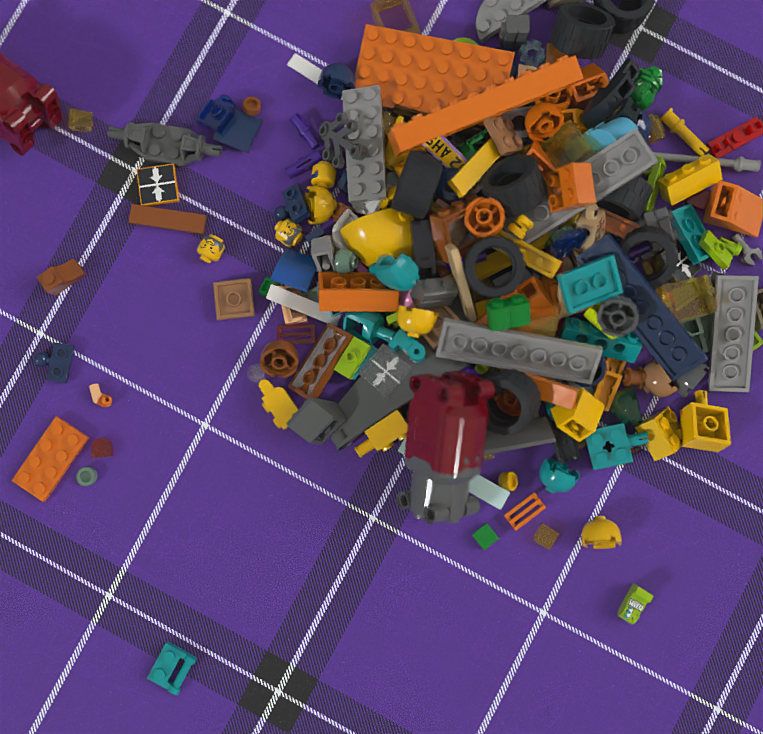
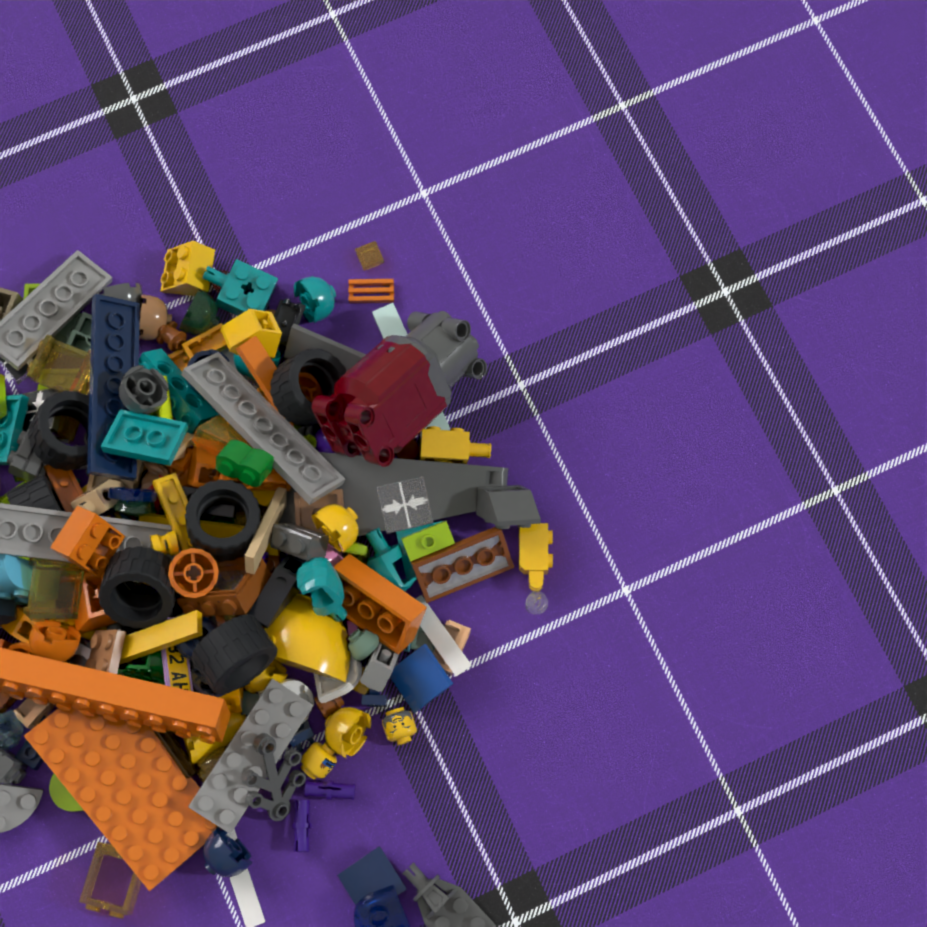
camera: 145 degrees left, 10 degrees down
(50, 459) = (809, 666): orange piece -> none
(59, 362) = (736, 762): dark blue plate -> none
(61, 277) = (673, 853): dark orange arch -> none
(86, 476) = (782, 622): sand green tile -> none
(98, 397) = (717, 693): arm -> none
(102, 448) = (748, 639): clear red tile -> none
(158, 185) = (501, 884): black tile -> none
(167, 219) = (517, 837): dark orange tile -> none
(167, 663) = (818, 386): teal plate -> none
(210, 248) = (493, 768): yellow head -> none
(234, 299) = (506, 696): medium nougat plate -> none
(251, 106) = (337, 899): dark orange tile -> none
(266, 285) = (462, 683): green tile -> none
(279, 359) = (501, 597): dark orange cylinder -> none
(295, 205) = (370, 749): dark blue plate -> none
(297, 334) = (484, 626): clear red tile -> none
(408, 346) = (361, 503): teal leg -> none
(485, 536) = (425, 294): green tile -> none
(508, 481) = (366, 327): yellow tile -> none
(601, 533) = (316, 222): yellow cylinder -> none
(634, 604) = (335, 144): lime leg -> none
(704, 425) = (143, 247): yellow brick -> none

